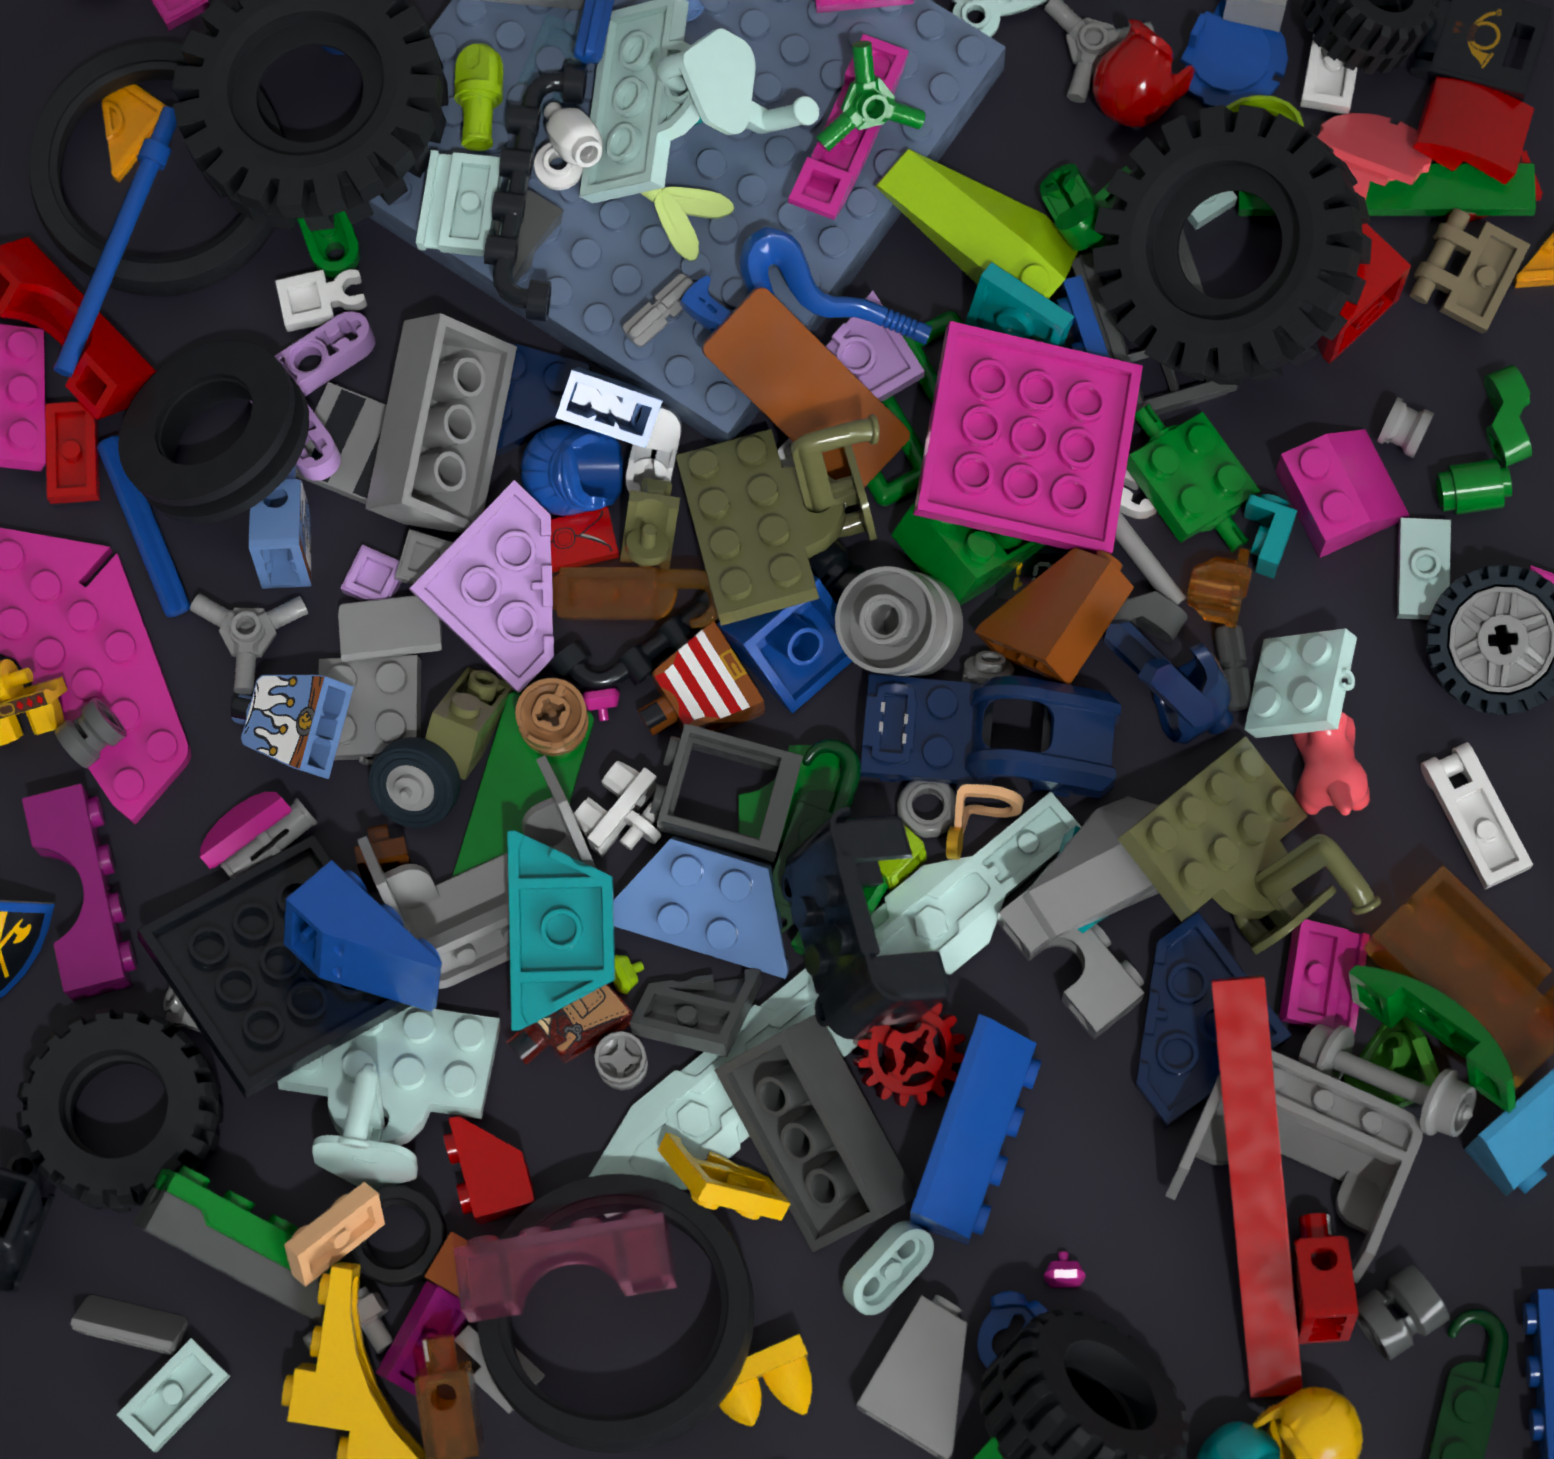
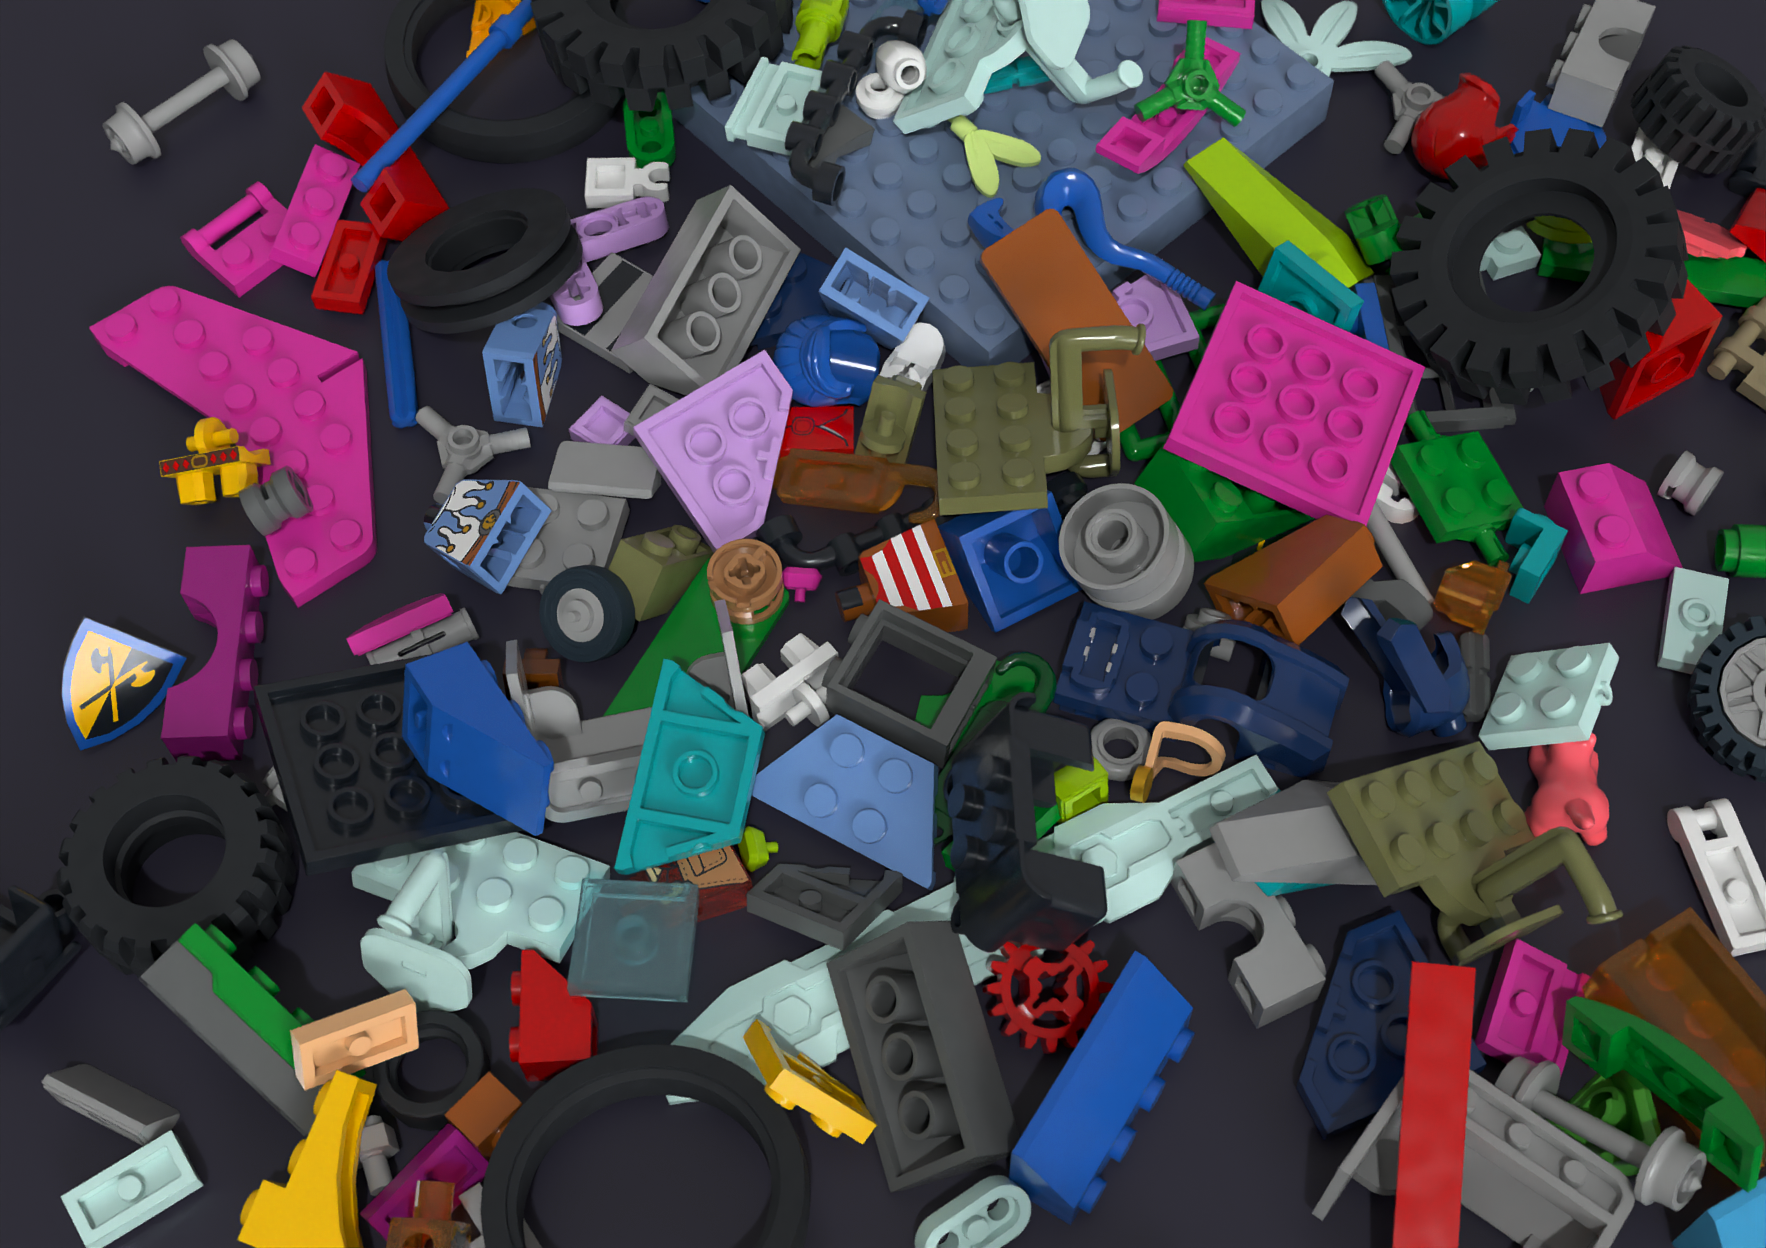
camera: 10 degrees right, 15 degrees down
(499, 1274) = (525, 1120): clear pink arch -> none
(545, 1090) = (634, 940): none -> clear light blue plate
(621, 1051) = (727, 922): light grey wheel -> none
(652, 318) = (939, 233): light grey piece -> none

